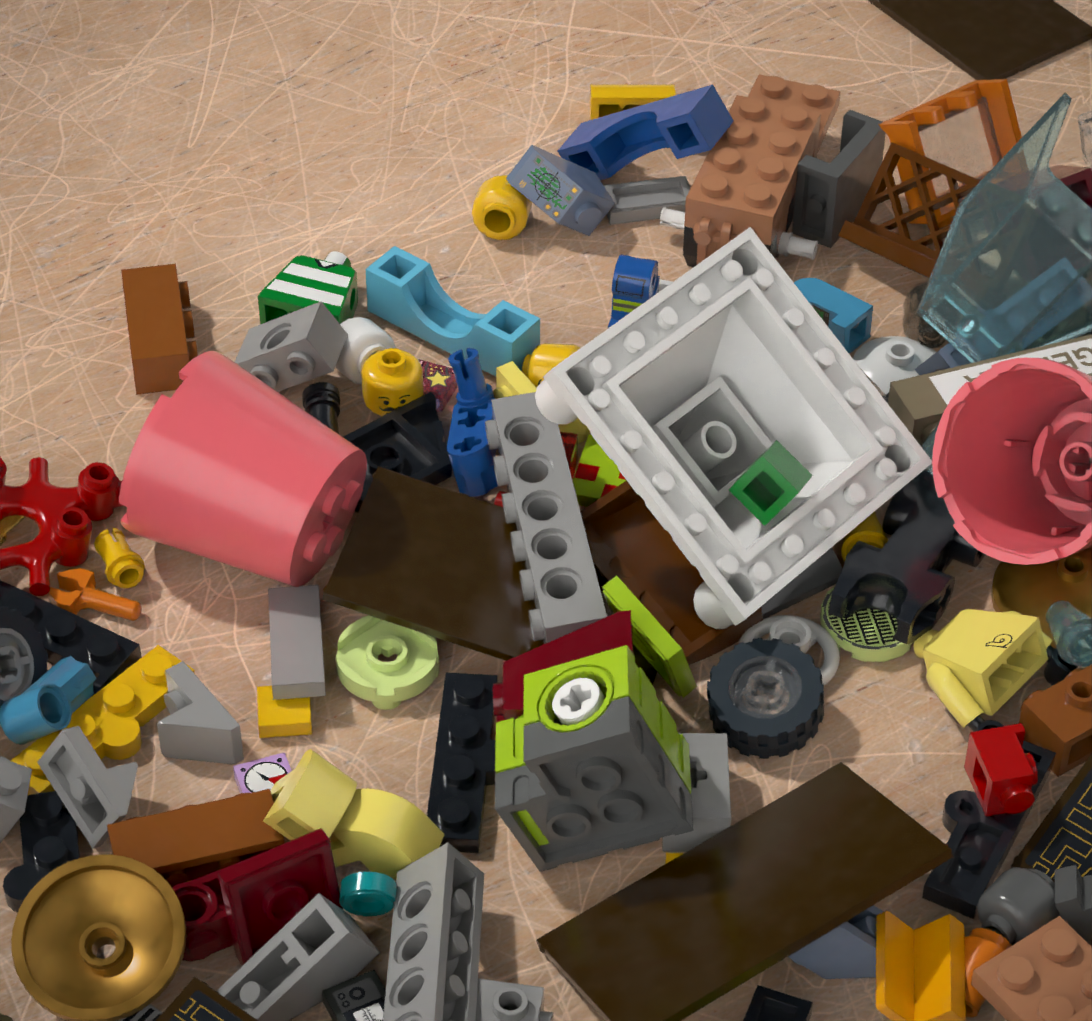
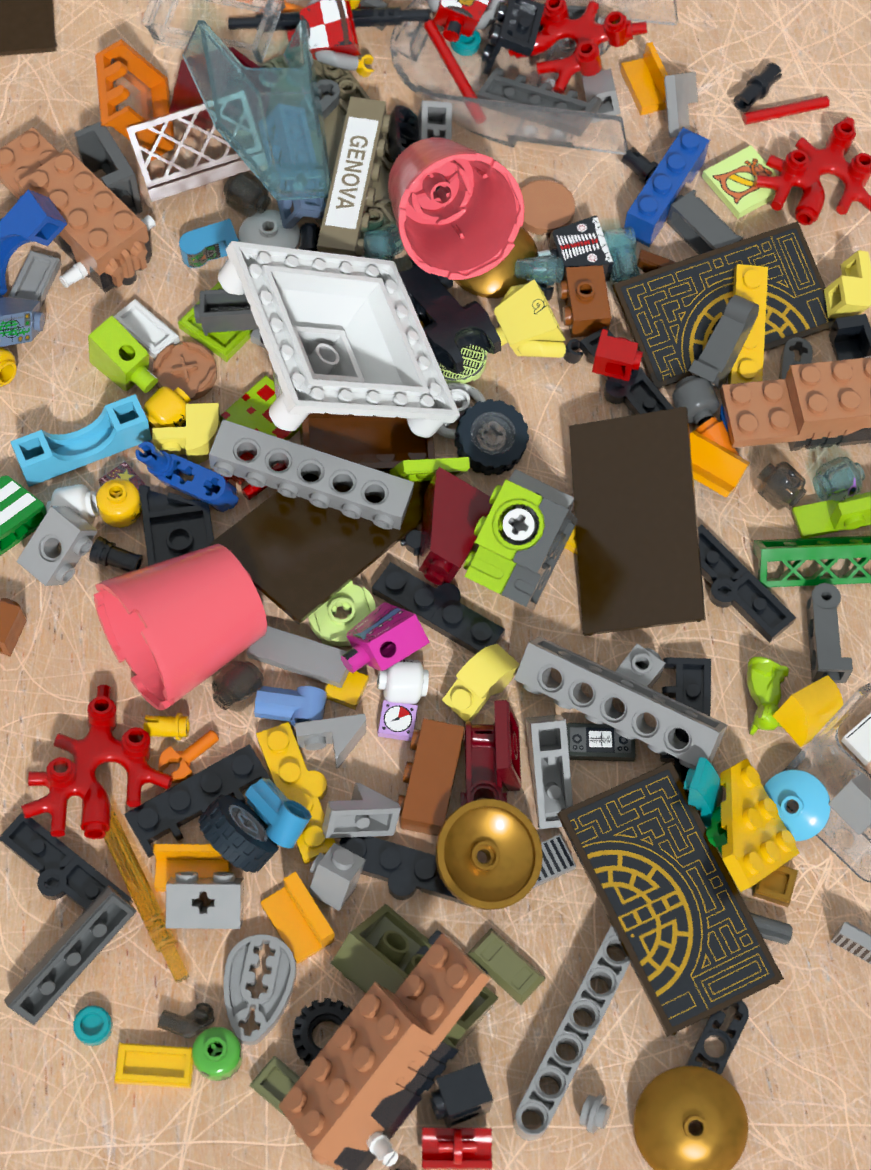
camera: 65 degrees left, 20 degrees up
(211, 596) = (237, 685): none -> clear smoke head
(217, 658) = (290, 705): none -> medium blue piece
(310, 798) = (453, 696): light yellow brick -> none
(328, 739) = (404, 682): none -> white head
(368, 893) = (524, 701): teal tile -> none
(375, 699) = (384, 638): none -> dark pink torso
(586, 310) = (120, 356): none -> lime torso
(632, 285) = (149, 332): blue leg -> none
(770, 483) = (381, 346): green brick -> none

